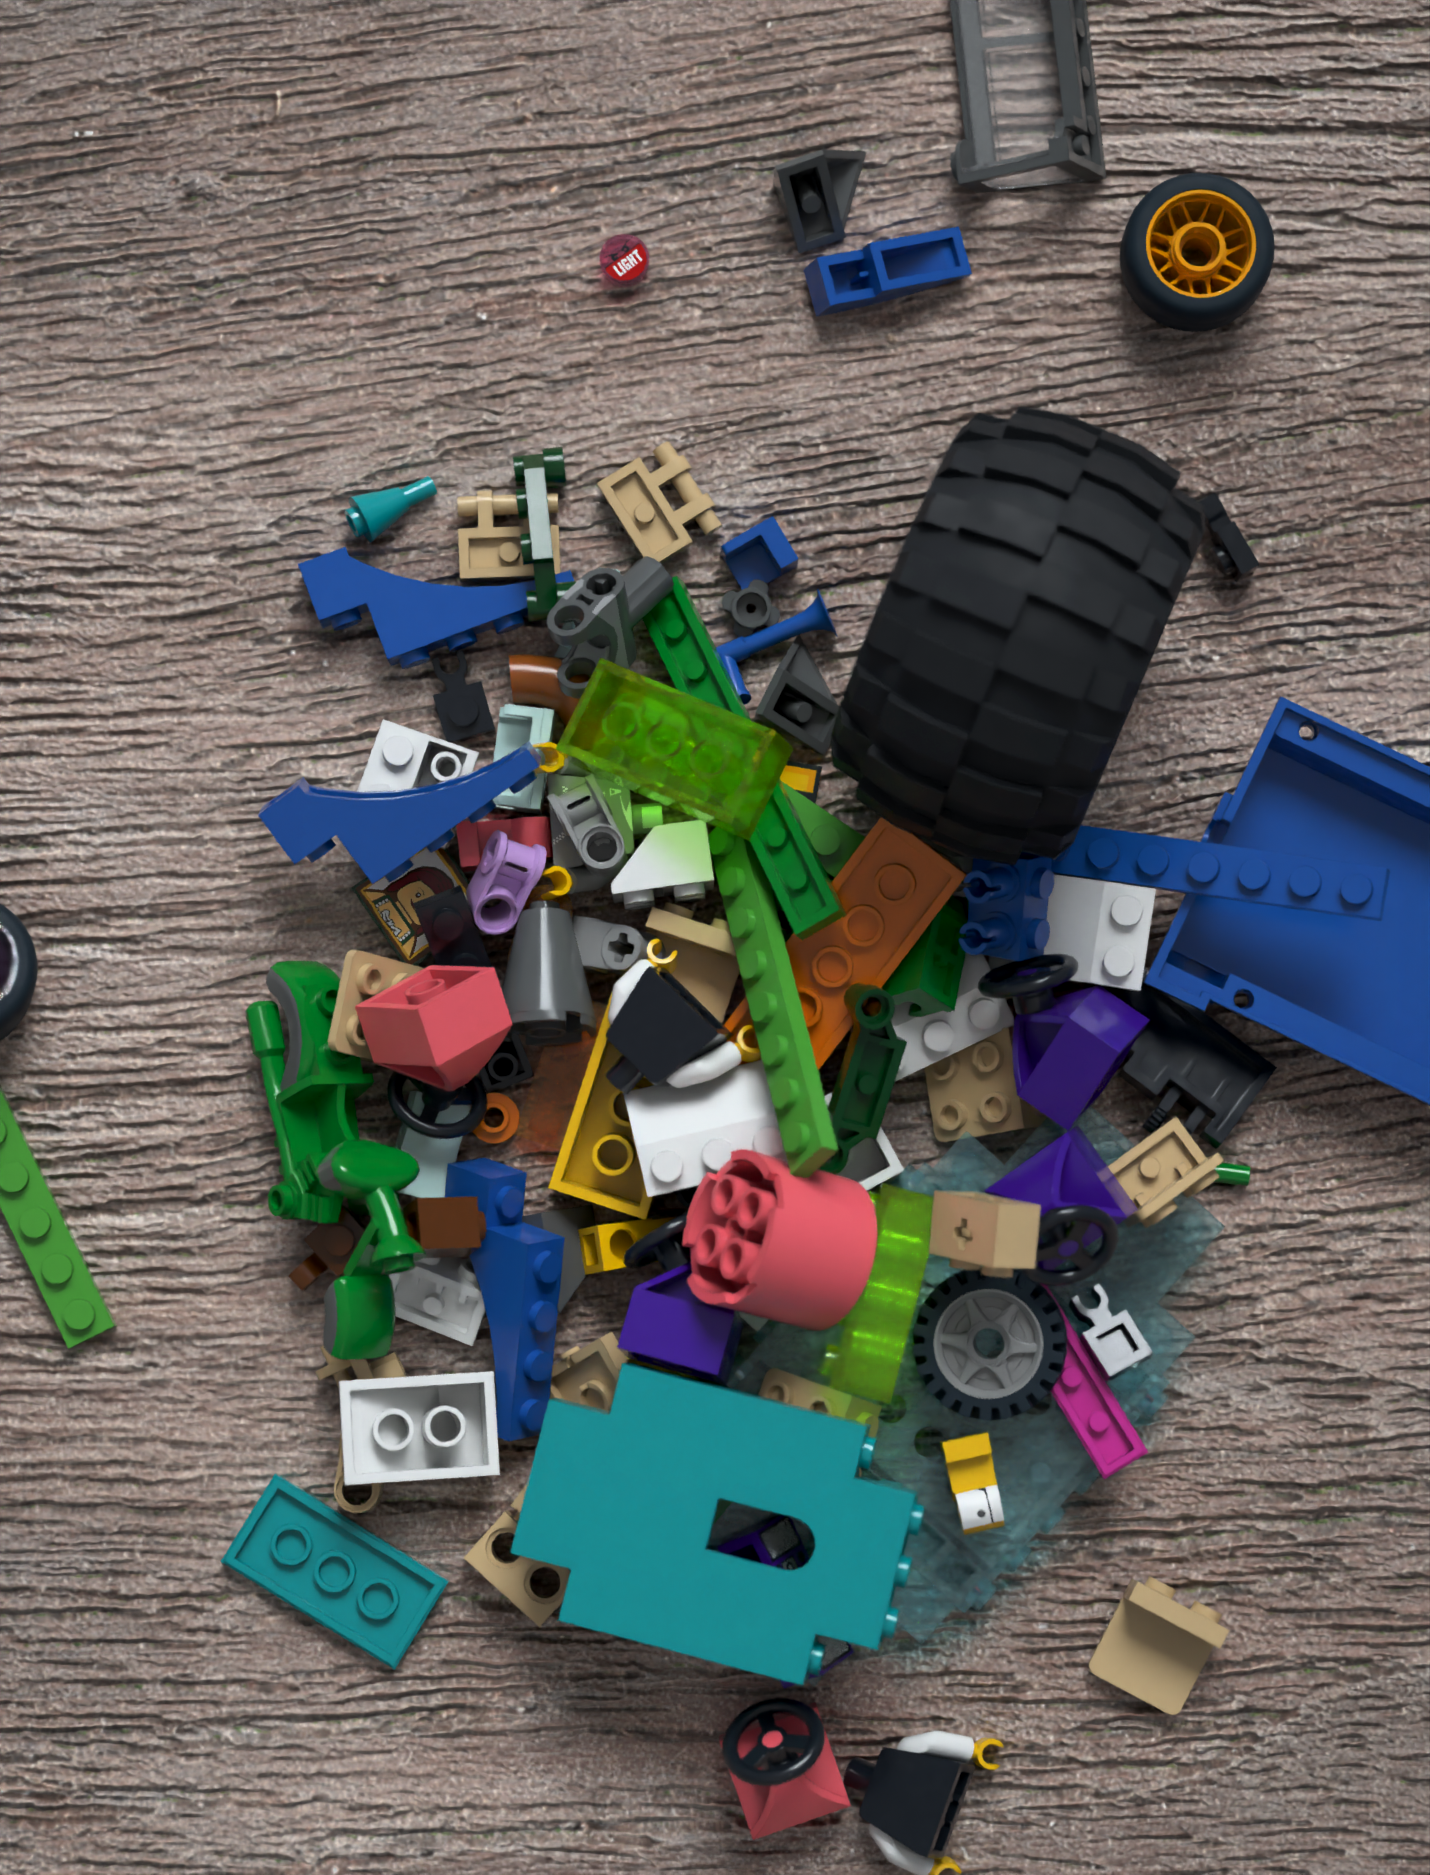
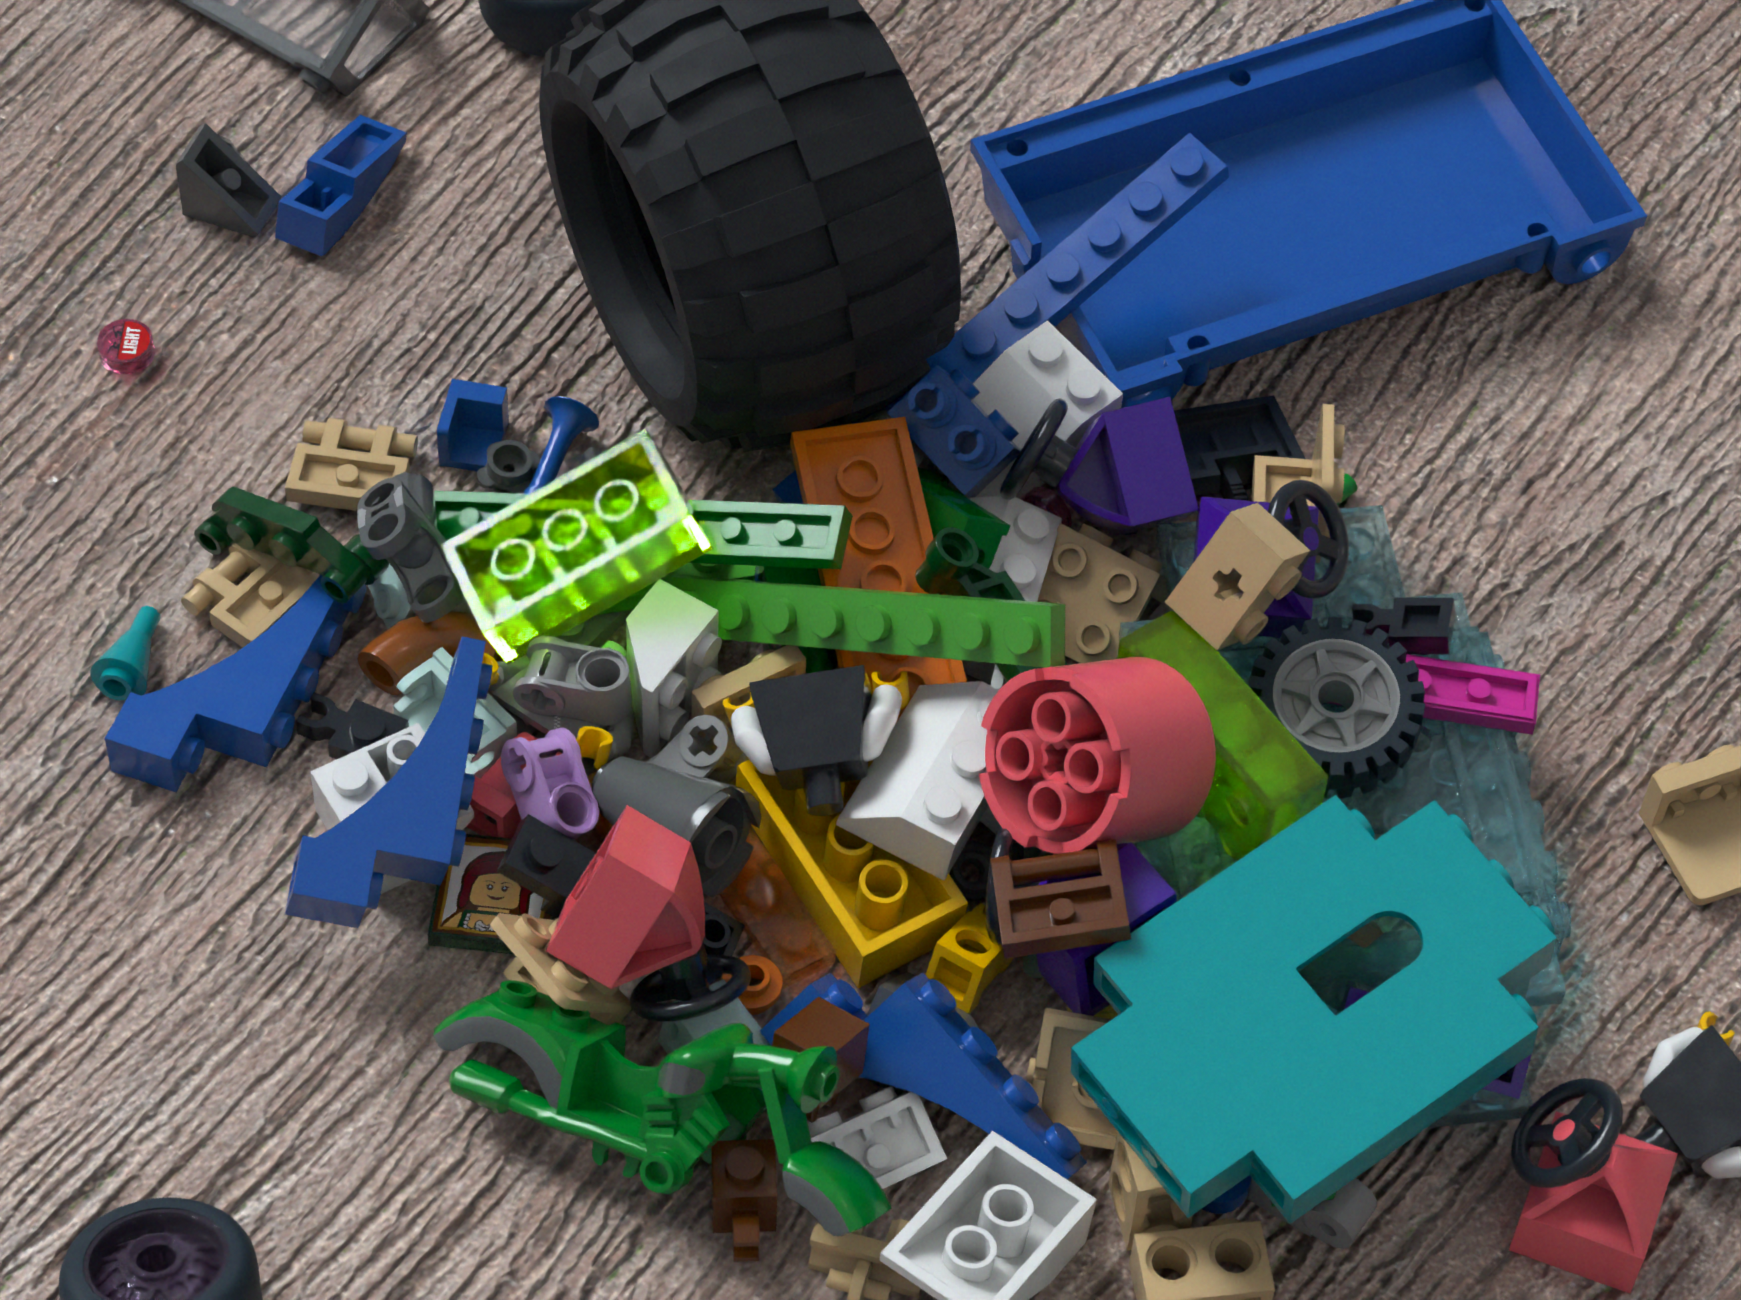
camera: 50 degrees left, 30 degrees down
(634, 1318) = (1060, 912): none -> reddish brown plate
(973, 1482) = (1482, 813): yellow leg -> none

